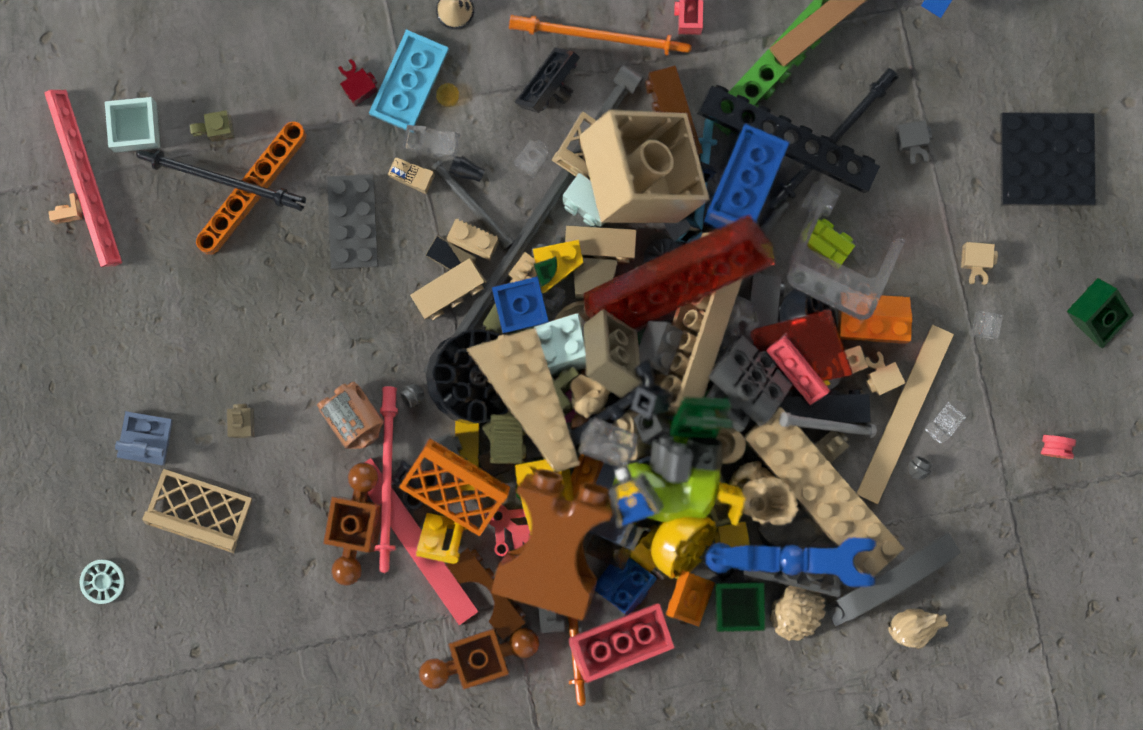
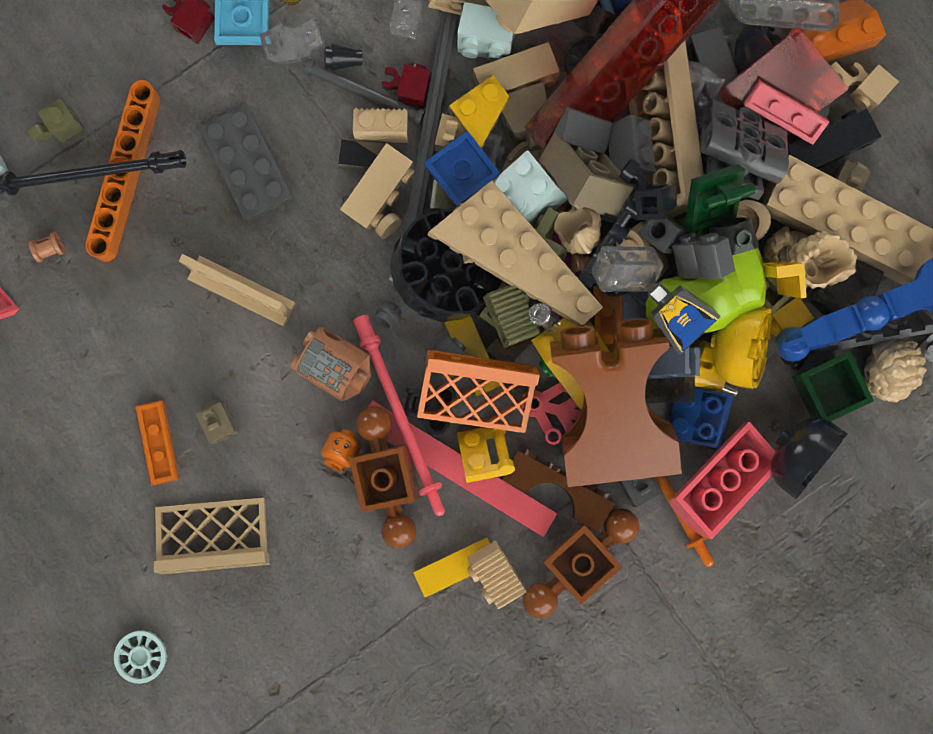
camera: 25 degrees left, 0 degrees up
(144, 438) = (120, 483): sand blue plate -> none
(165, 223) = (46, 247): none -> nougat bush
(186, 418) = (157, 443): none -> orange tile
(303, 324) = (239, 289): none -> tan fence
(328, 485) = (339, 449): none -> orange head
(379, 619) = (447, 570): none -> yellow tile
(408, 638) = (496, 575): none -> tan brick
(411, 175) = (287, 87): tan leg -> none
(443, 322) = (388, 225): none -> tan tile
(512, 216) = (411, 86): none -> dark red brick
(528, 450) = (541, 315): none -> clear pin
(546, 270) = (474, 119): dark green tile -> none
(626, 319) = (584, 130): none -> dark grey slope
(690, 598) = (776, 402): orange plate -> none
(692, 649) = (804, 453): none -> black cylinder
(786, 420) = (805, 163): light grey bar -> none
(904, 414) = (907, 115): tan tile -> none

